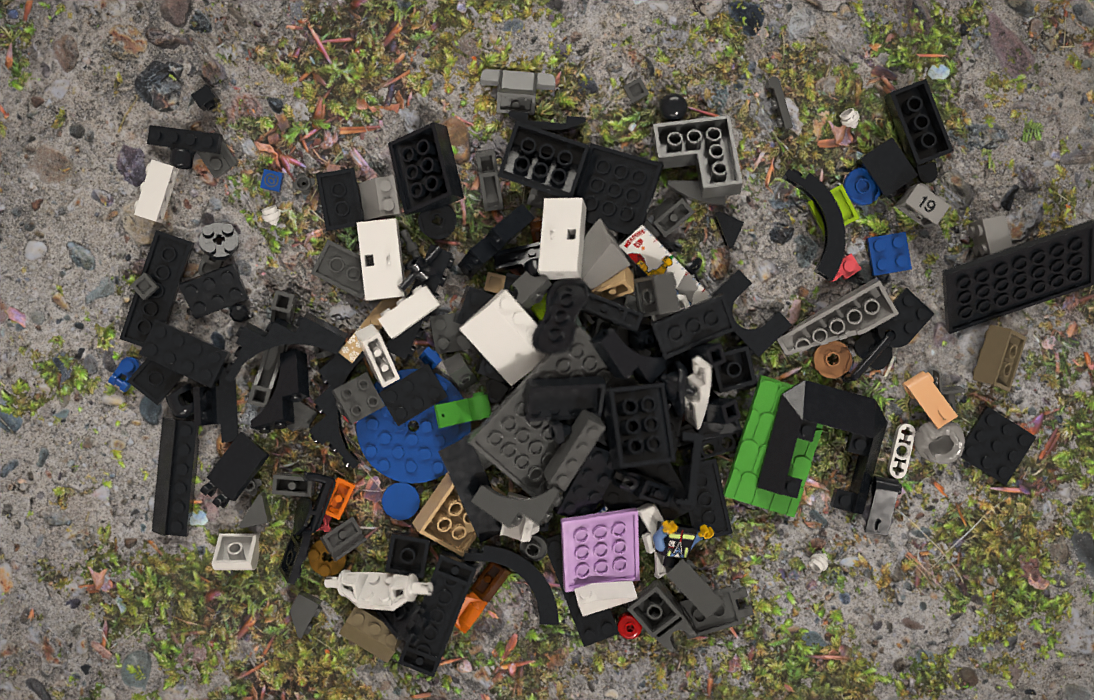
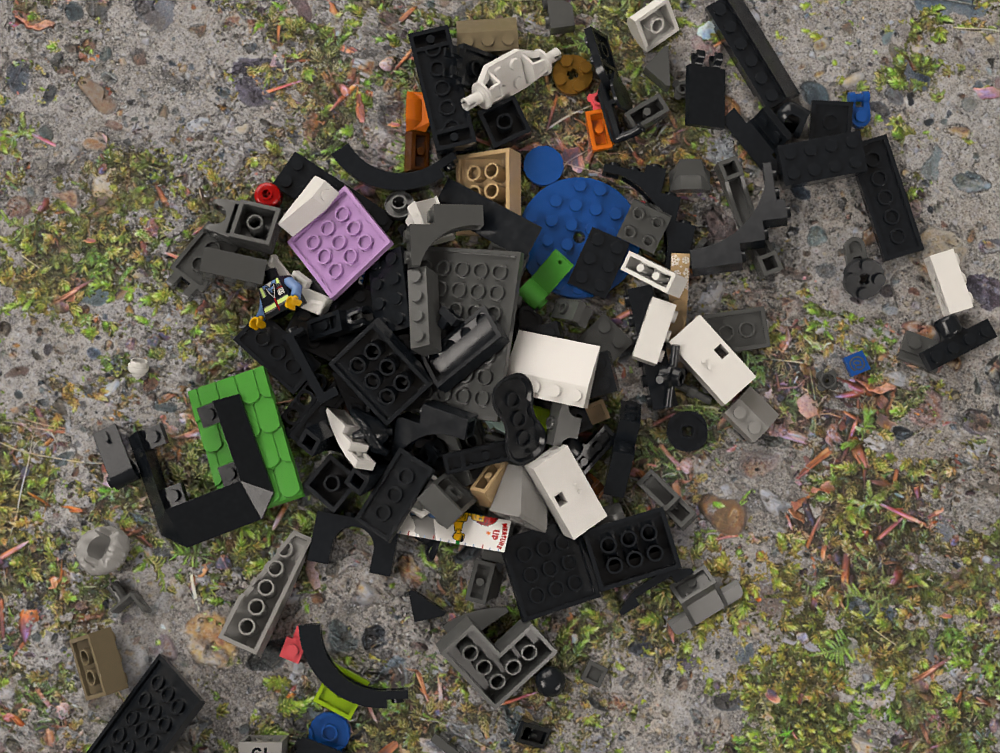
camera: 150 degrees right, 5 degrees down
(144, 286) = (898, 193): dark grey plate -> none
(205, 98) = (966, 394): black plate -> none
(214, 291) = (835, 232): black plate -> none
(239, 313) = (799, 229): black tile -> none
(271, 214) = (835, 333): white plate -> none
(291, 387) = (708, 193): black arch -> none
(340, 199) = (785, 389): black plate -> none
(343, 538) = (570, 98): dark grey plate -> none
(425, 169) = (729, 468): black slope -> none
(430, 356) = (606, 306): blue plate -> none
(714, 80) = (531, 733): none -> black slope
(838, 368) = (239, 550): medium nougat plate -> none
(877, 346) = (216, 594): black plate -> none
(888, 253) = (263, 687): blue plate -> none
(910, 438) = (123, 514): white beam -> none
(929, 398) = (137, 581): light nougat door -> none
(996, 445) = (48, 583): black plate -> none

